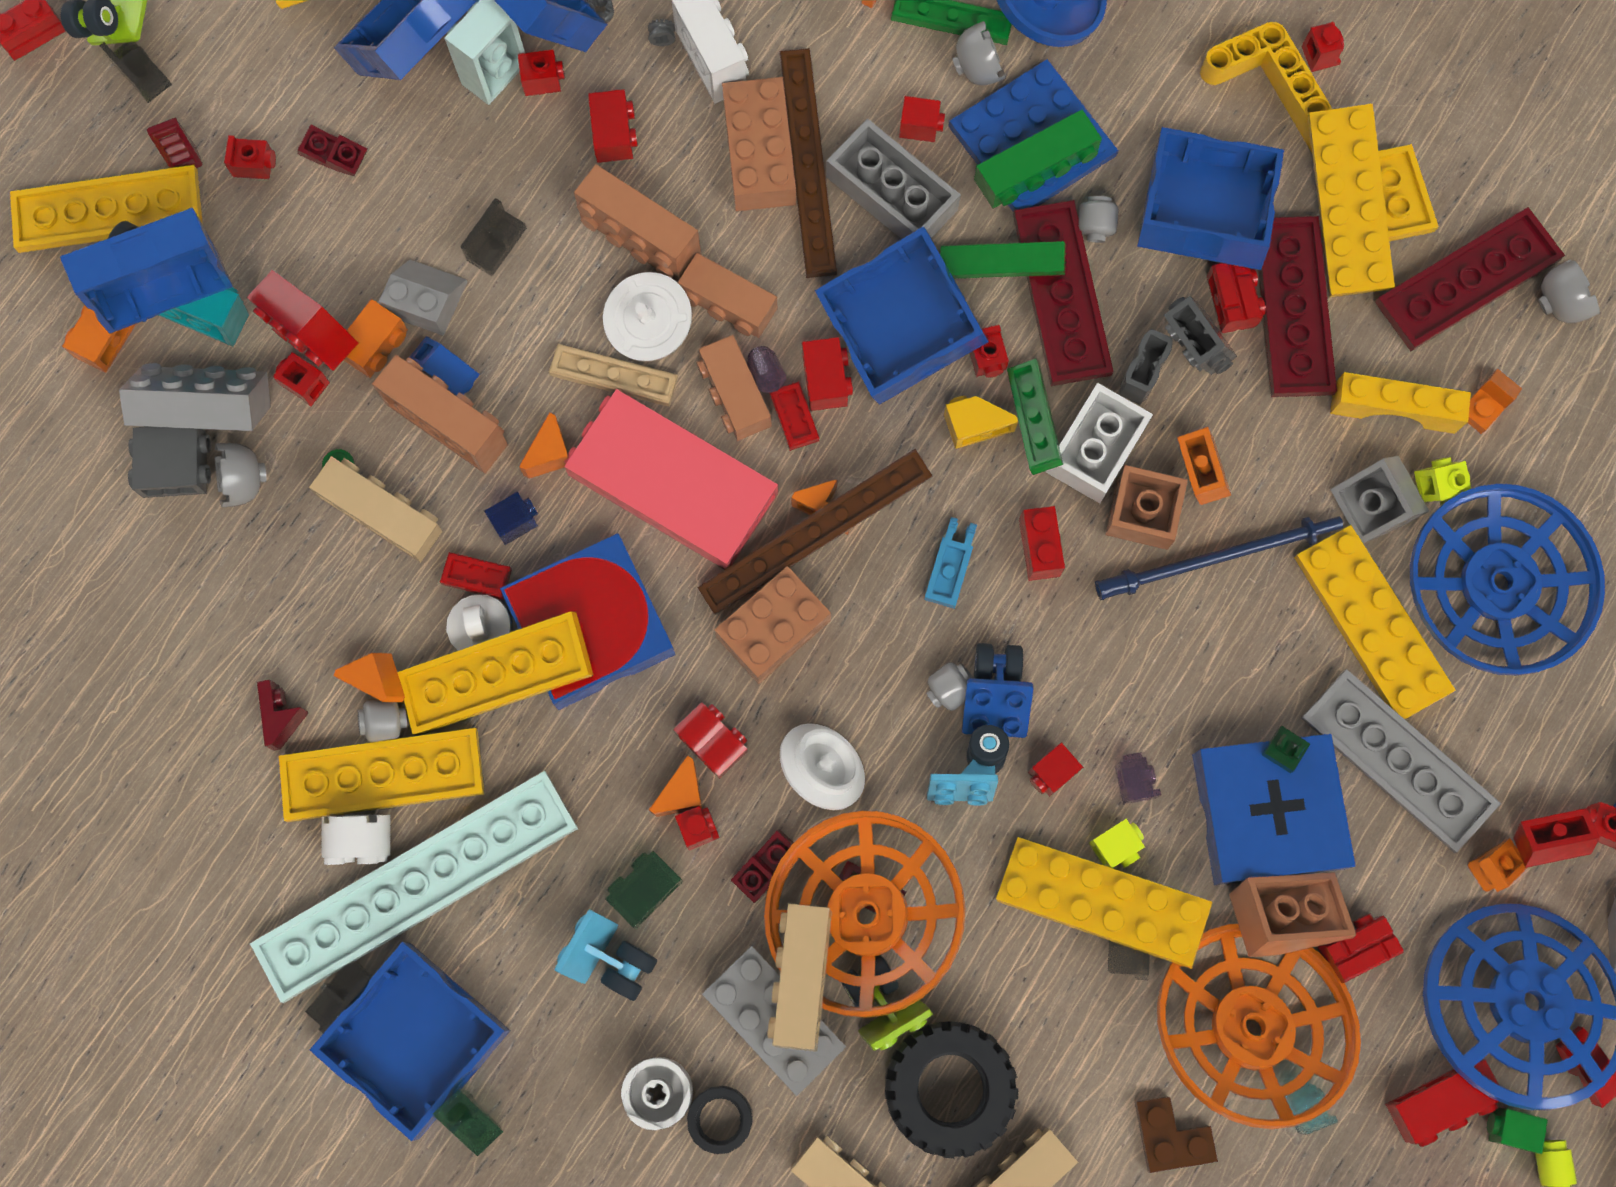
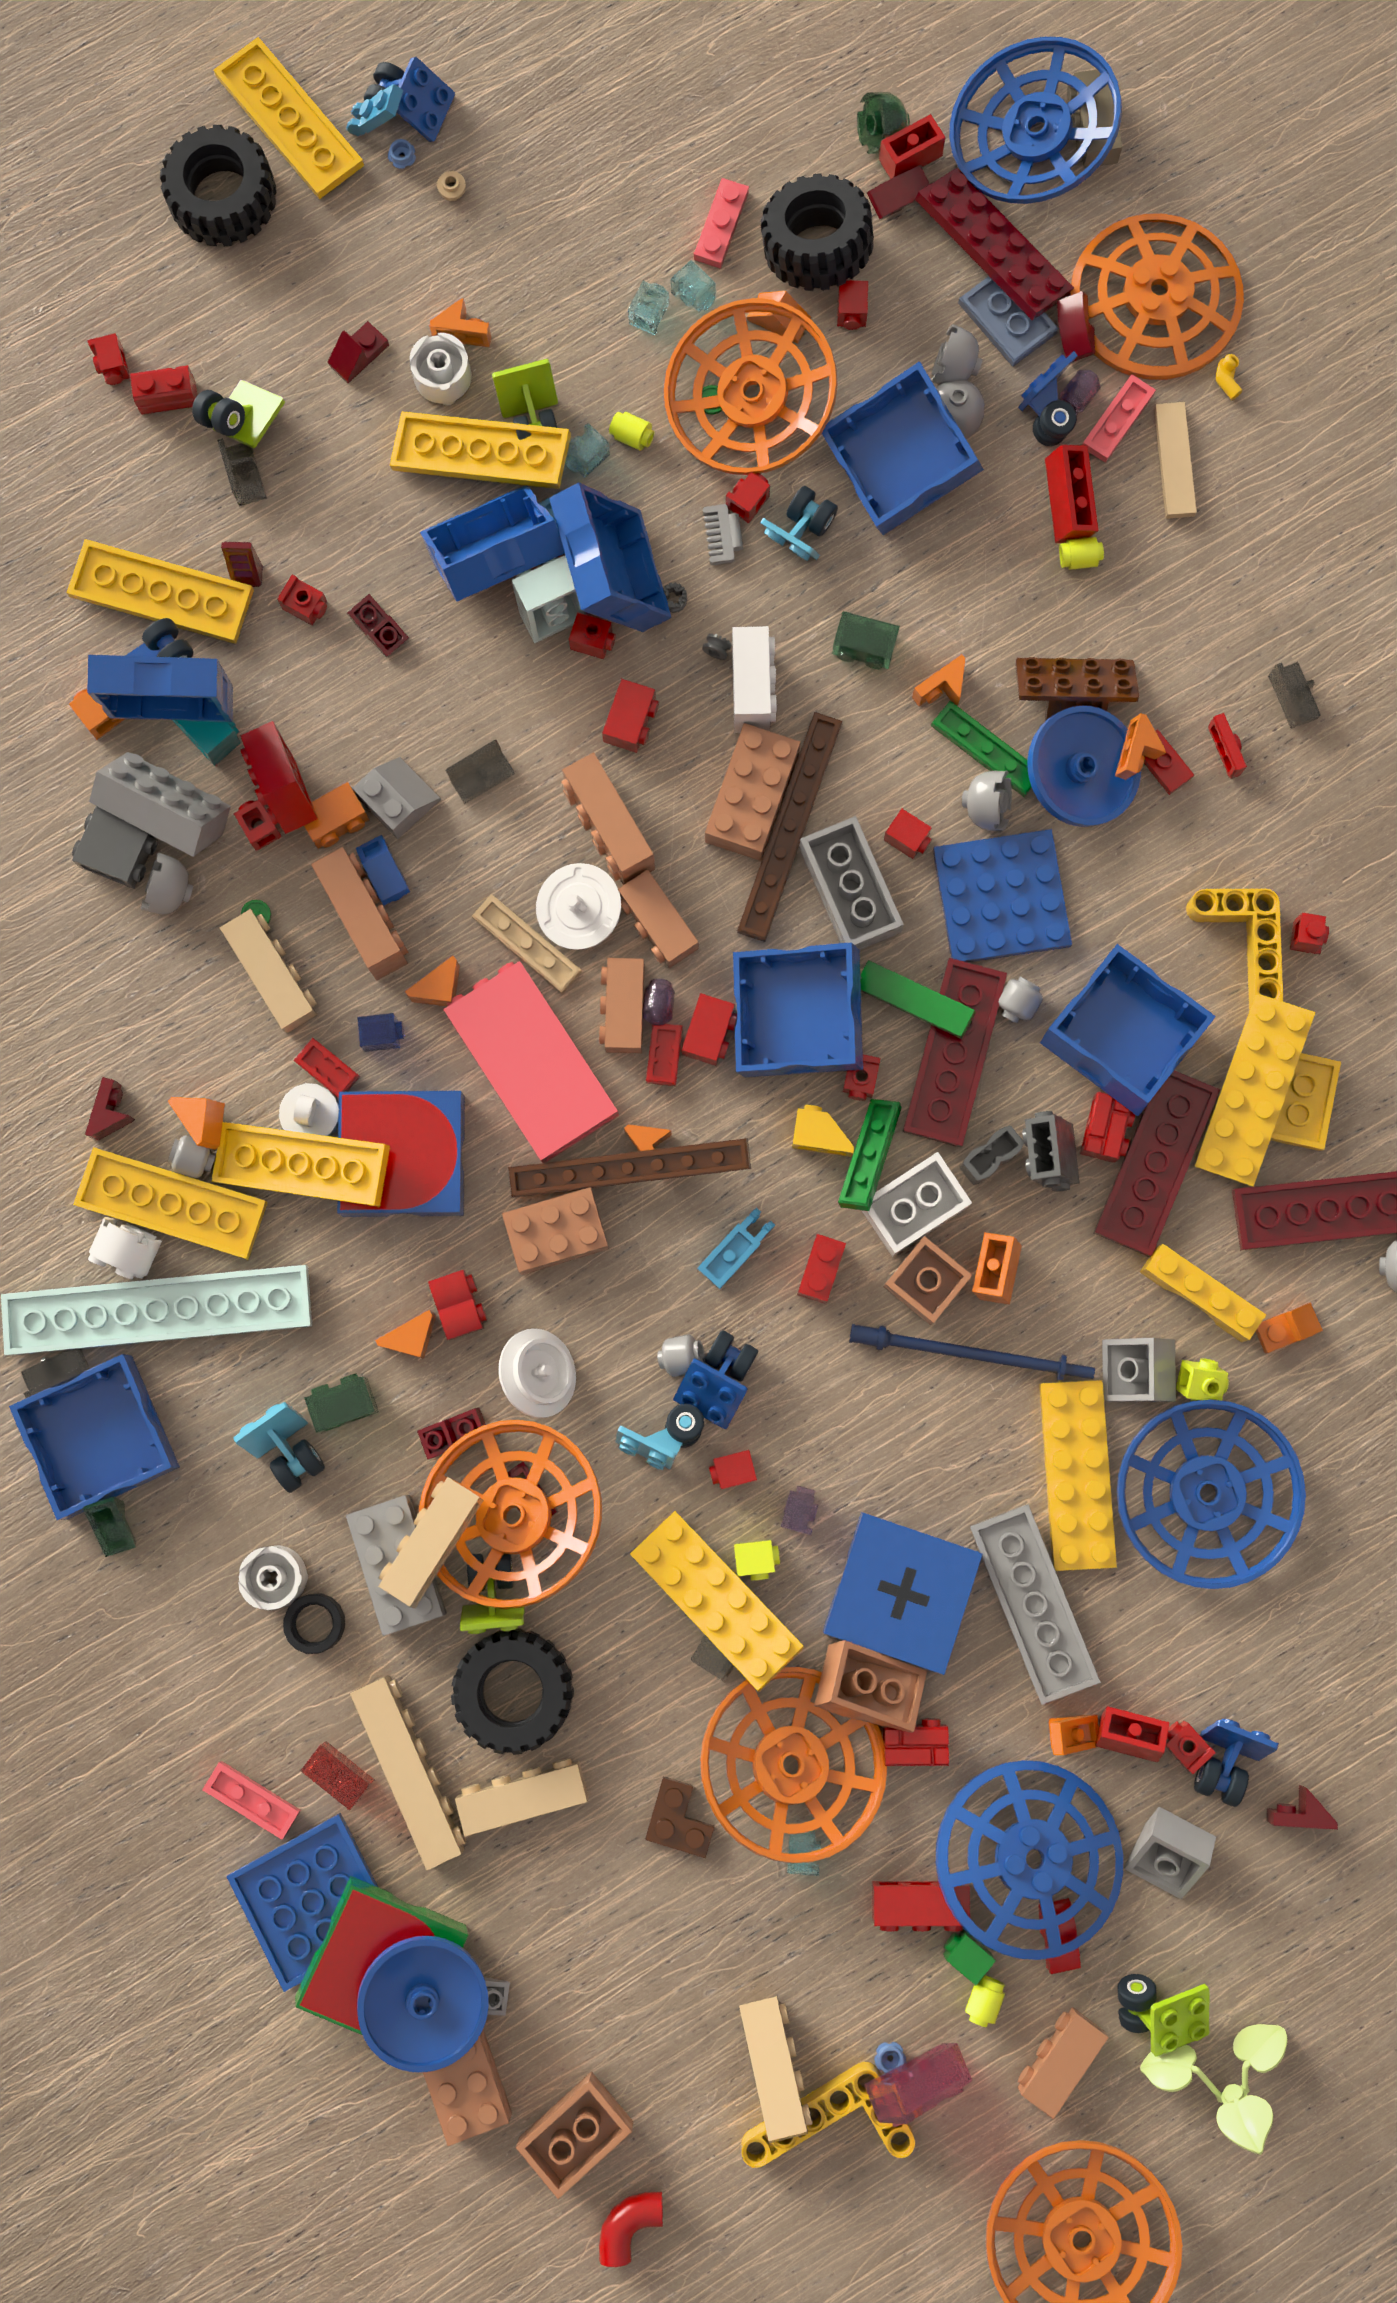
camera: 30 degrees right, 5 degrees up
(697, 827) = (409, 1373): red brick -> none
(1037, 159) = (990, 922): green brick -> none
(1286, 749) = (935, 1548): dark green tile -> none

